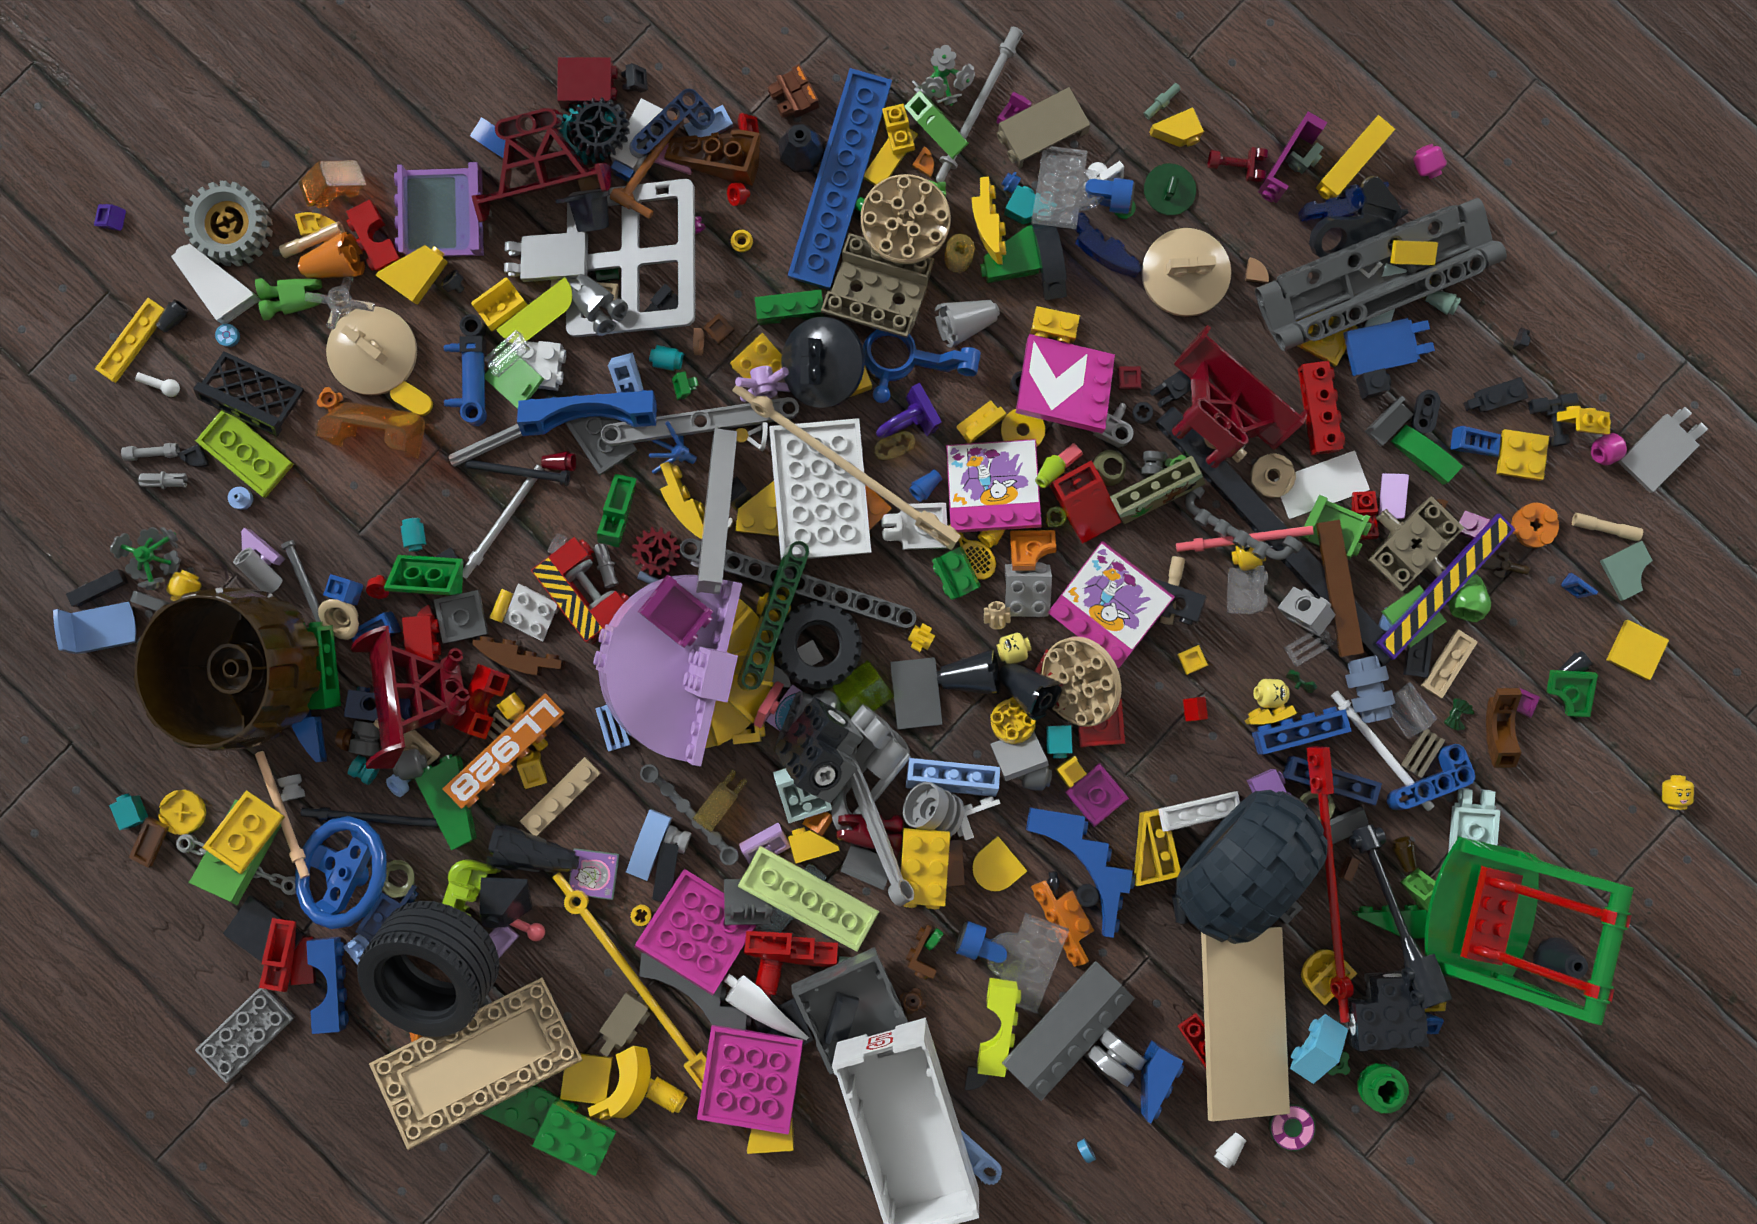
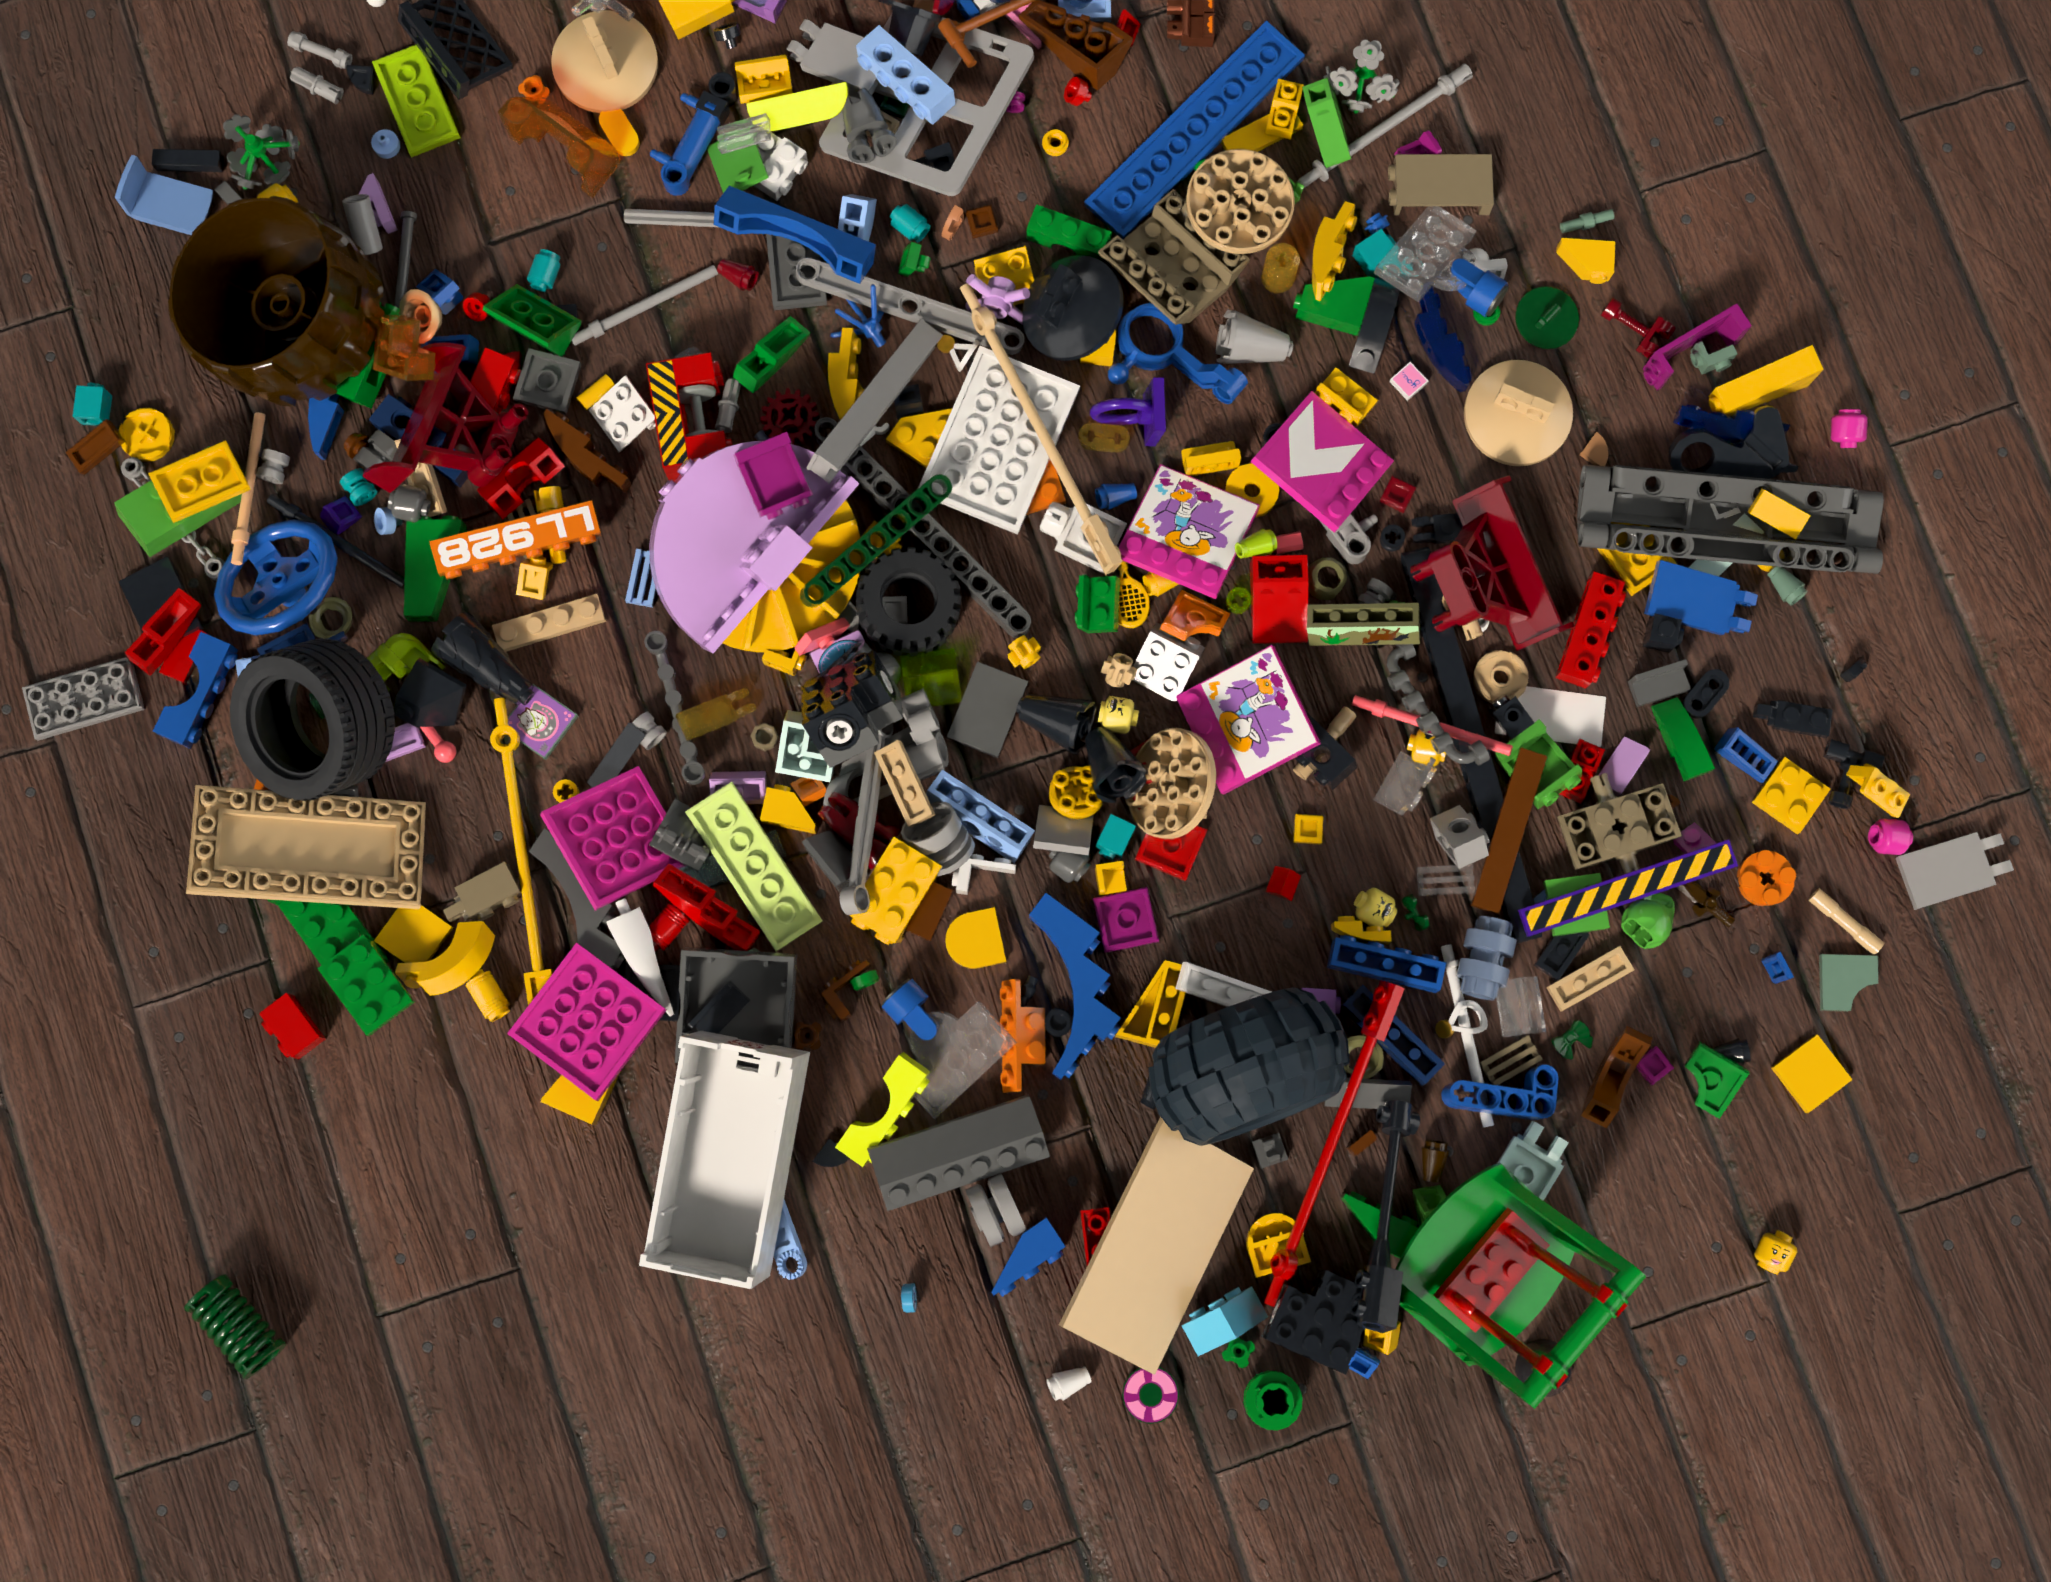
camera: 30 degrees right, 5 degrees down
(339, 656) = (398, 350): none -> clear orange brick
(361, 797) = (339, 515): none -> dark purple slope
(534, 1194) = (291, 1026): none -> red brick
(563, 477) = (733, 291): black bar -> none
(575, 235) = (880, 46): none -> light blue brick
(648, 844) = (613, 718): light blue slope -> none
(764, 798) = (764, 737): none -> dark tan tile
(801, 148) = (1170, 77): black cone -> none
(889, 784) = (904, 783): none -> tan plate
(924, 163) = (1295, 159): orange tile -> none
(1094, 289) = (1408, 381): none -> bright pink tile
(1296, 501) = (1510, 715): none -> black brick
(1365, 753) = (1446, 1028): none -> white piece

